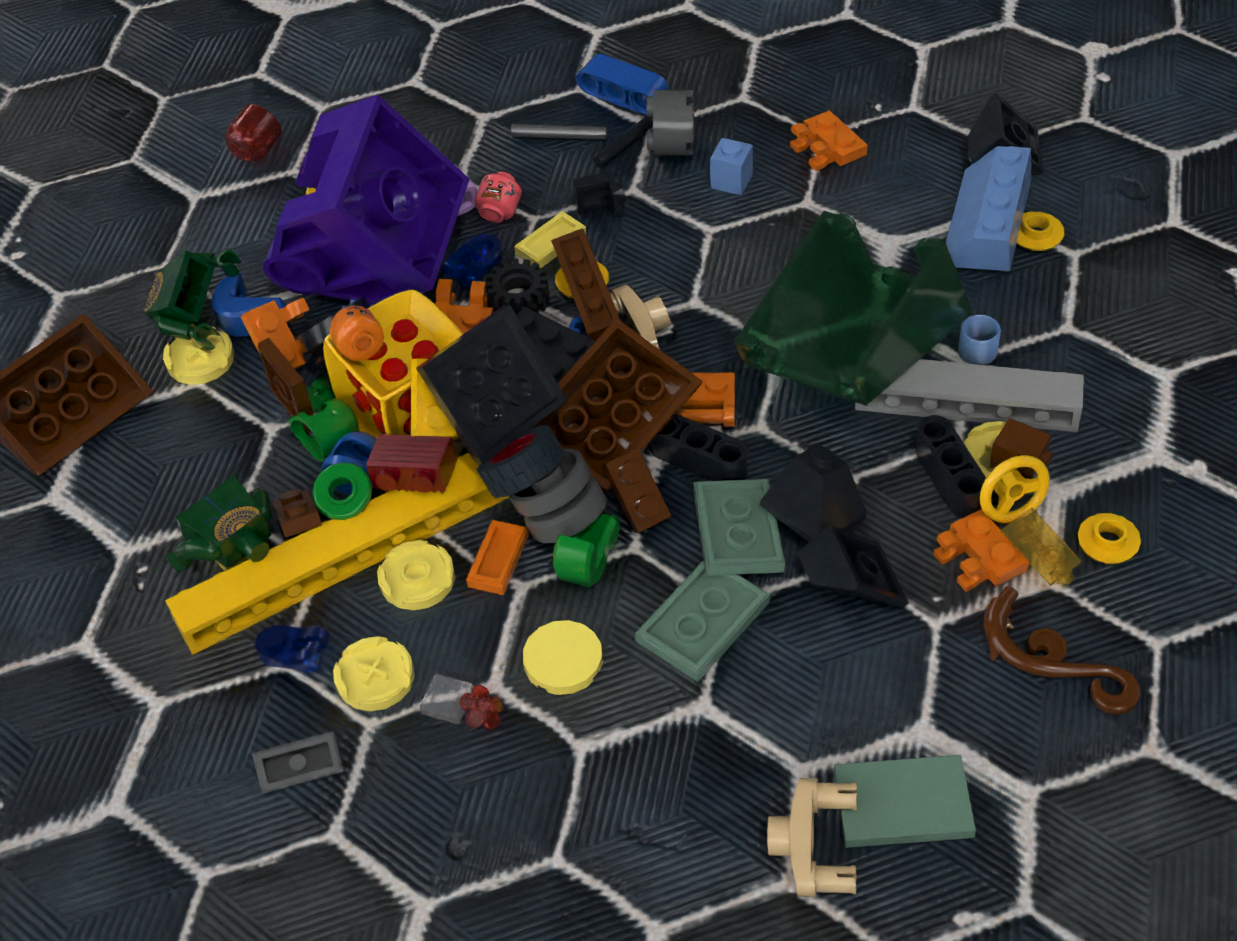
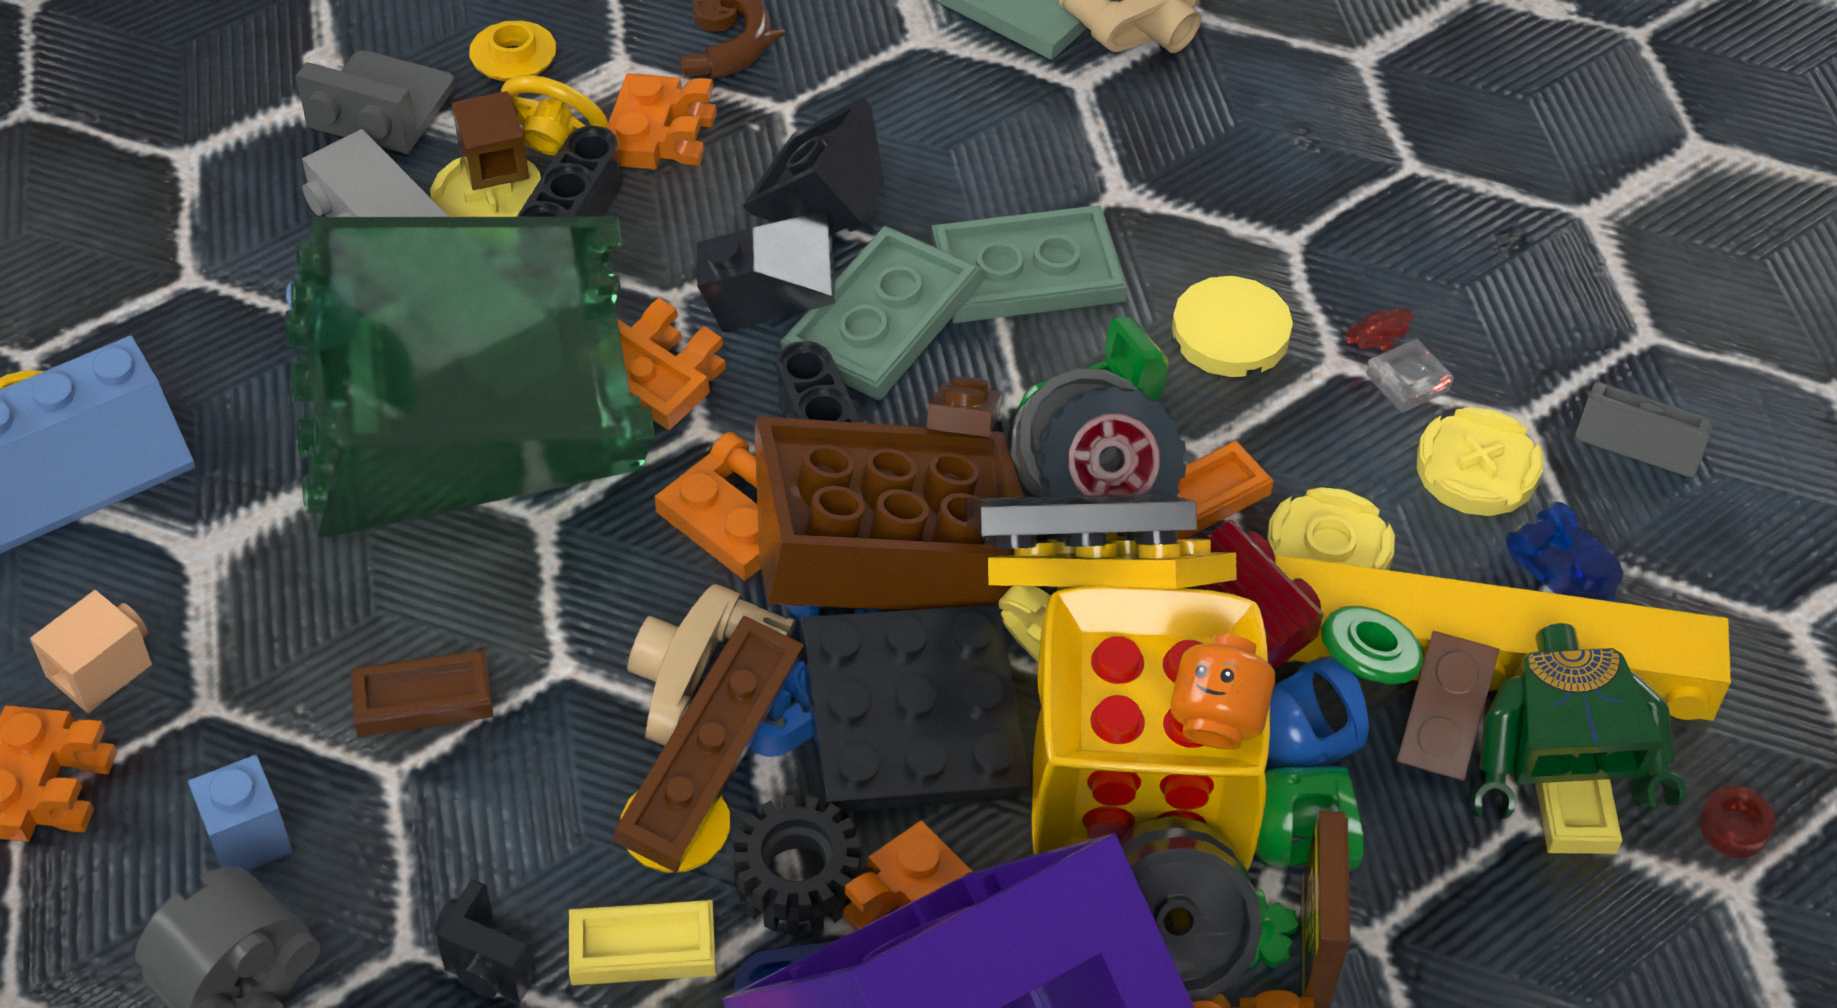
camera: 145 degrees left, 0 degrees up
(137, 573) = (1737, 821): none -> clear red tile
(732, 254) = (421, 693): none -> reddish brown tile
(807, 417) = (660, 379): none -> orange plate
(863, 174) = (92, 650): none -> light nougat brick
(1042, 548) = (604, 61): clear yellow hinge -> none
(1116, 447) = (376, 94): none -> dark grey bracket

